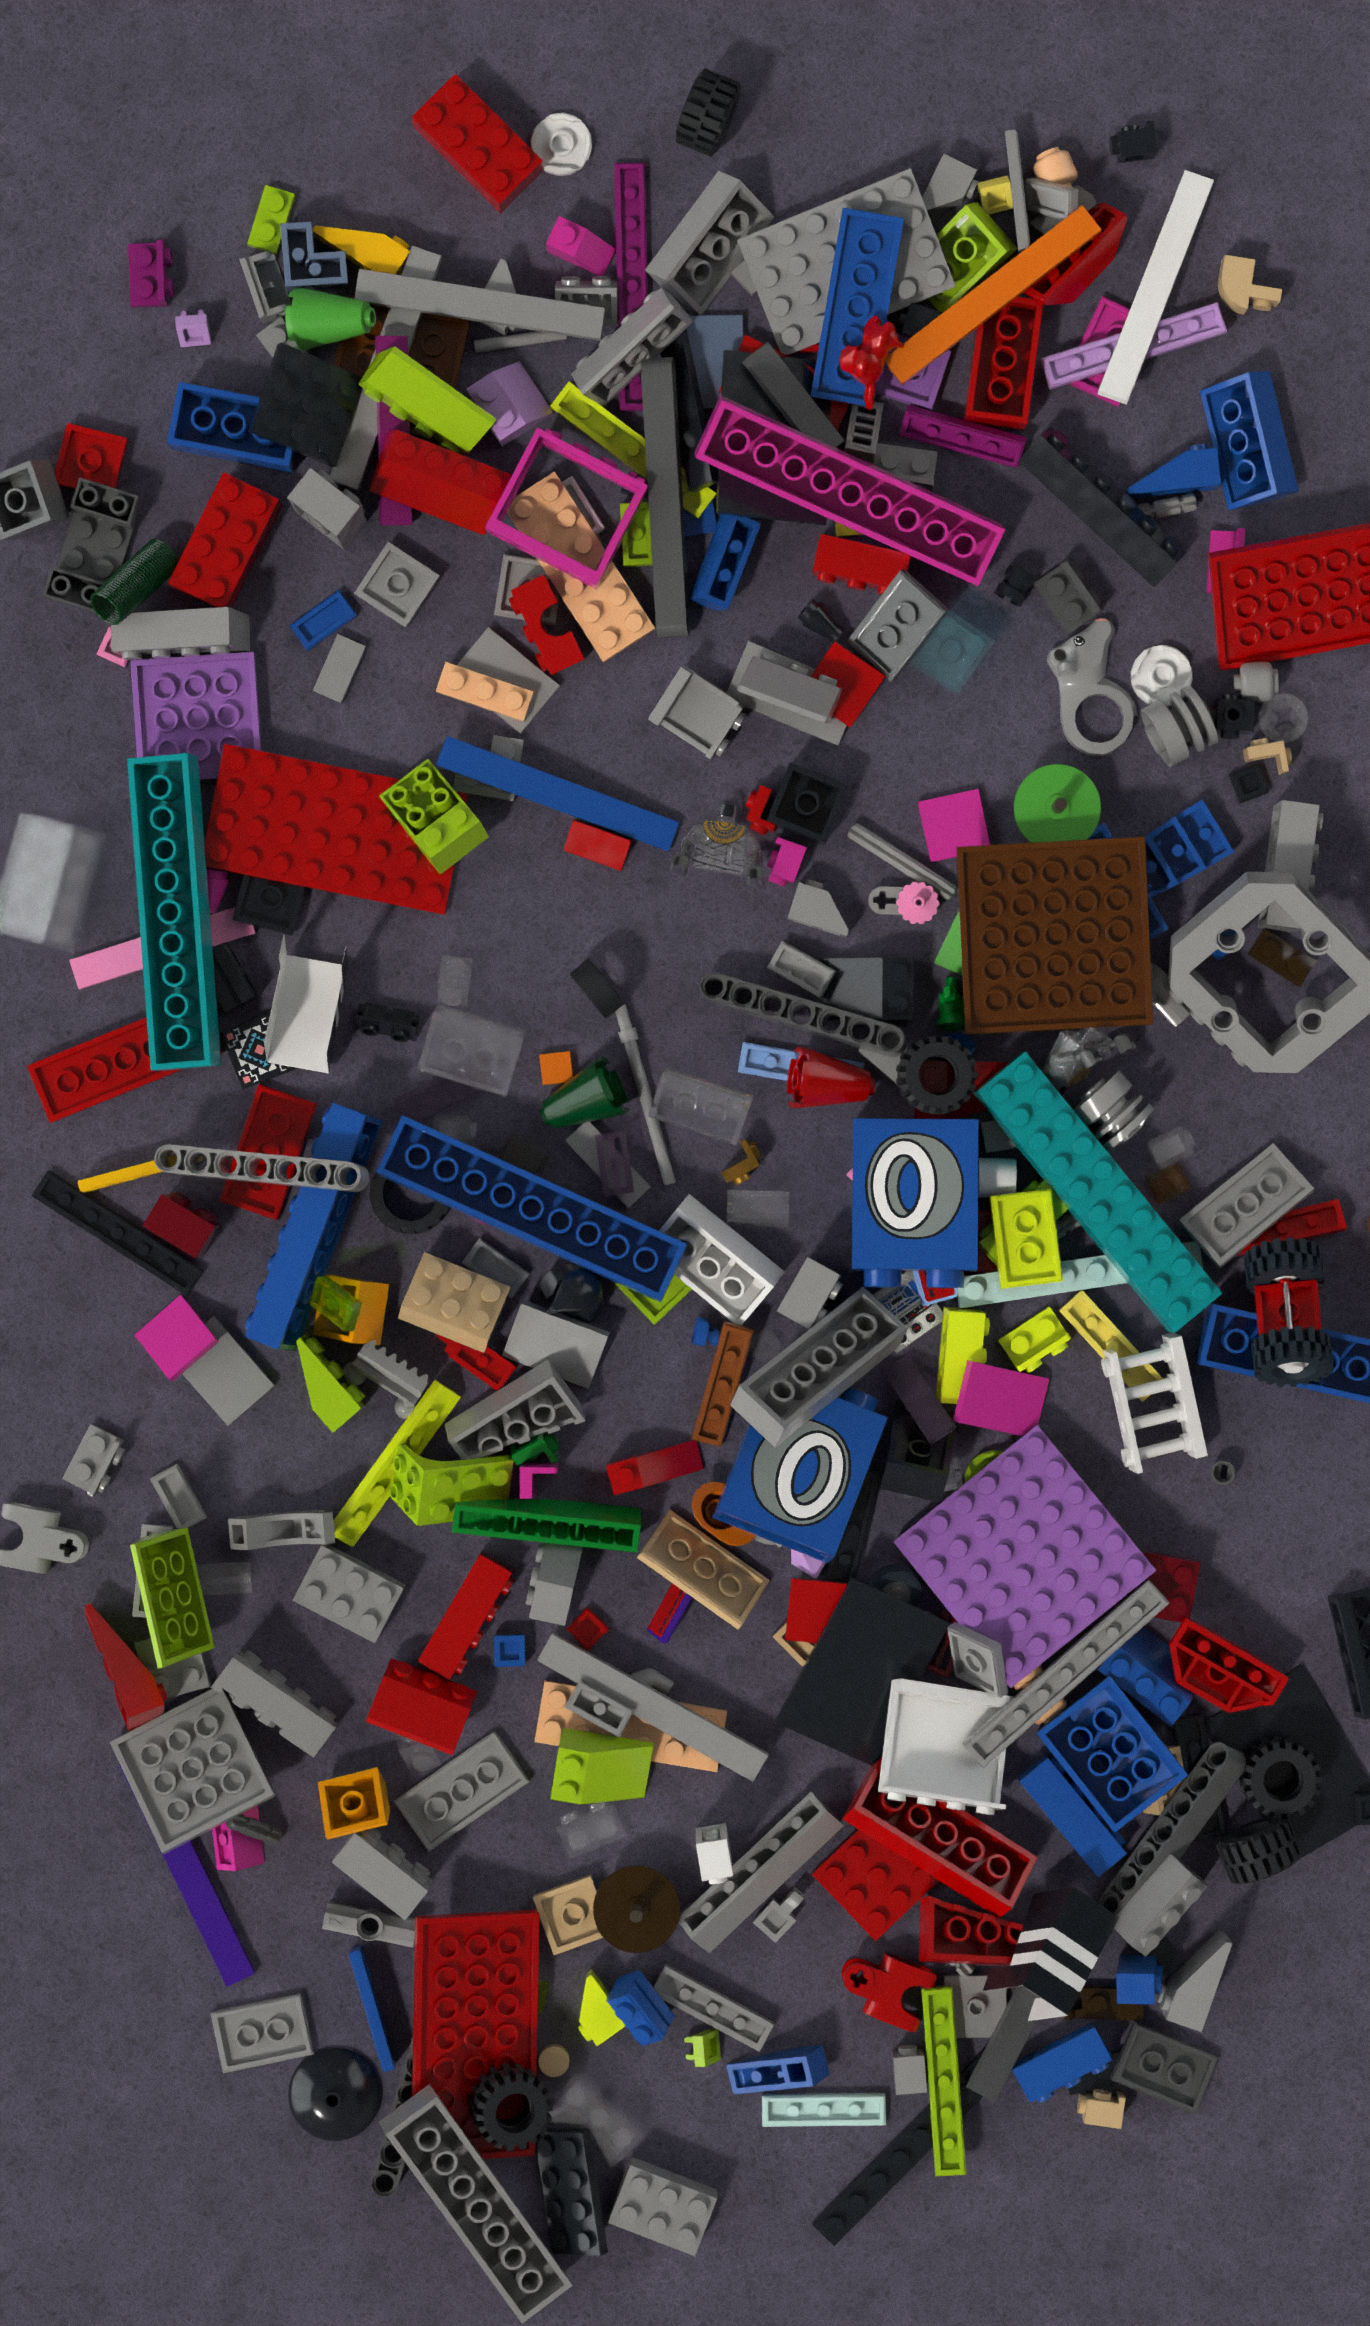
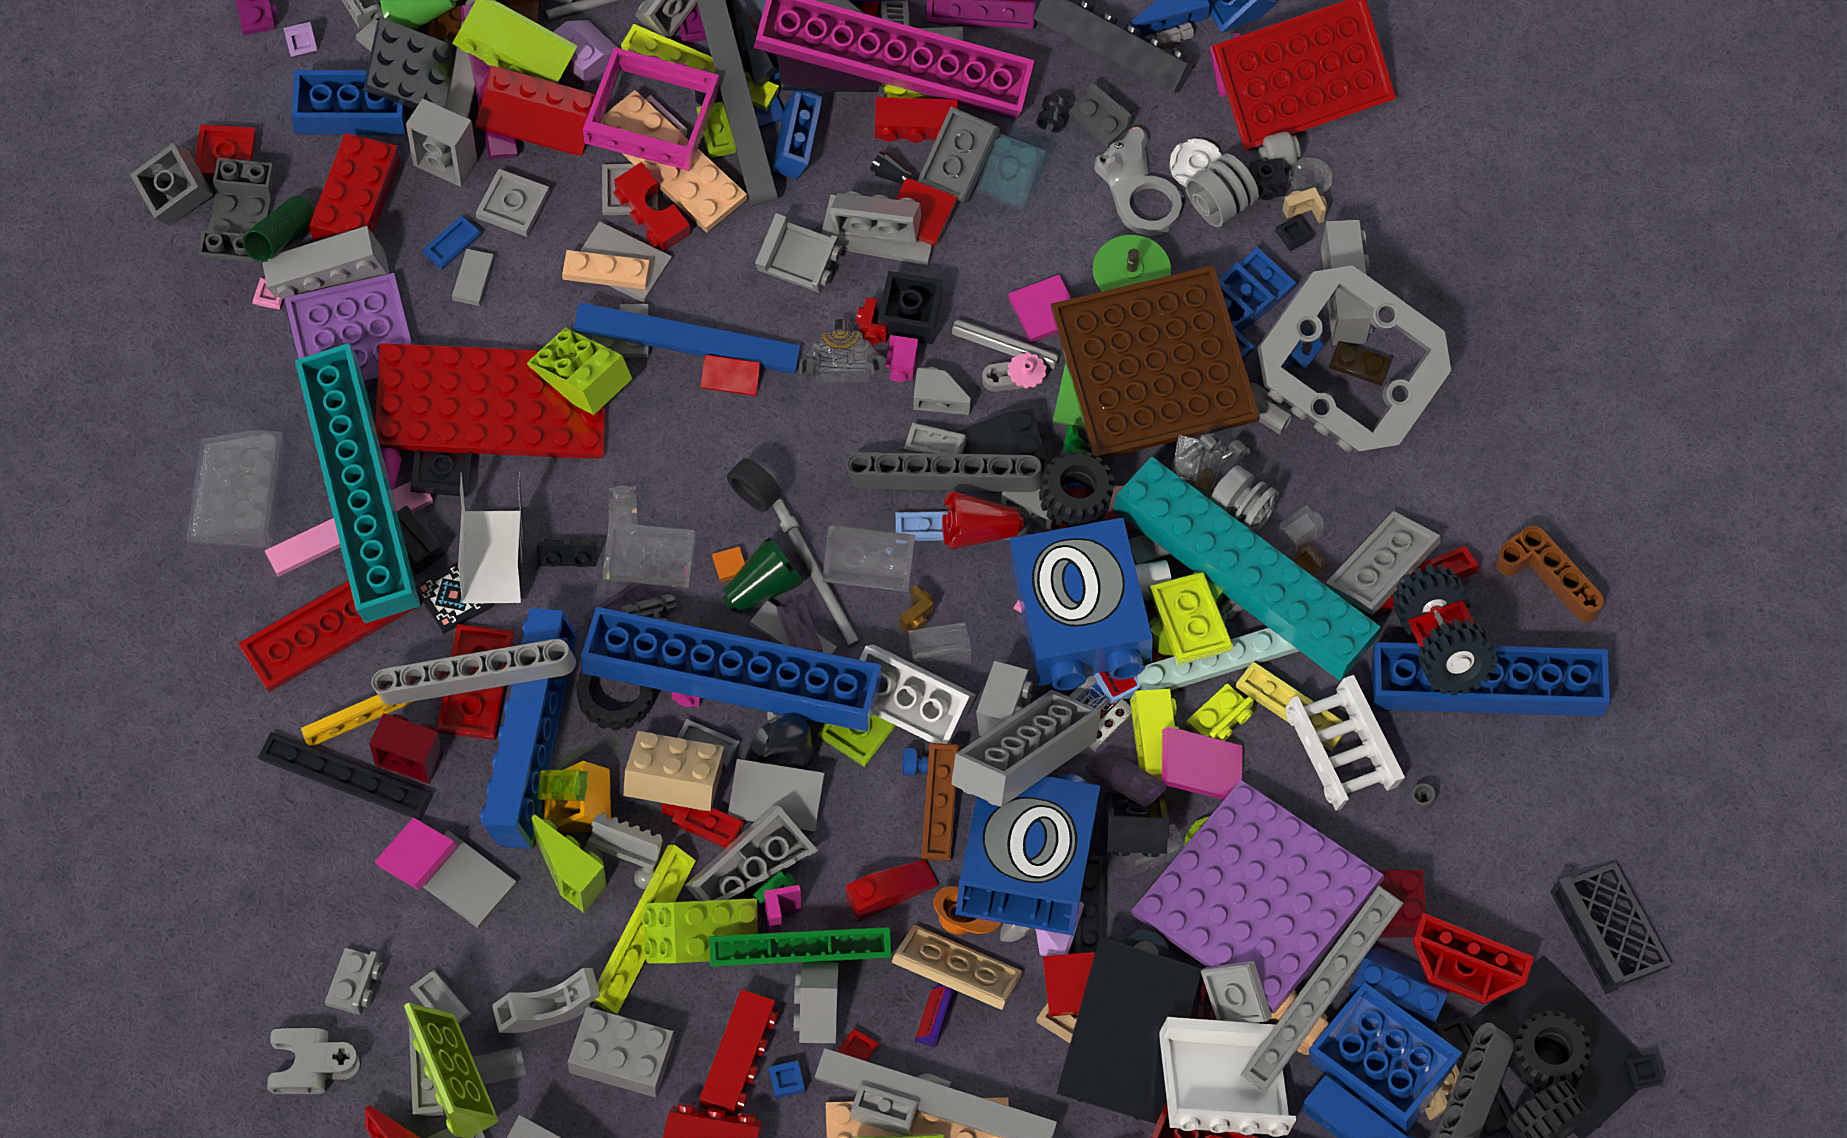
camera: 10 degrees left, 25 degrees down
(461, 1106) = (646, 607): none -> dark grey axle

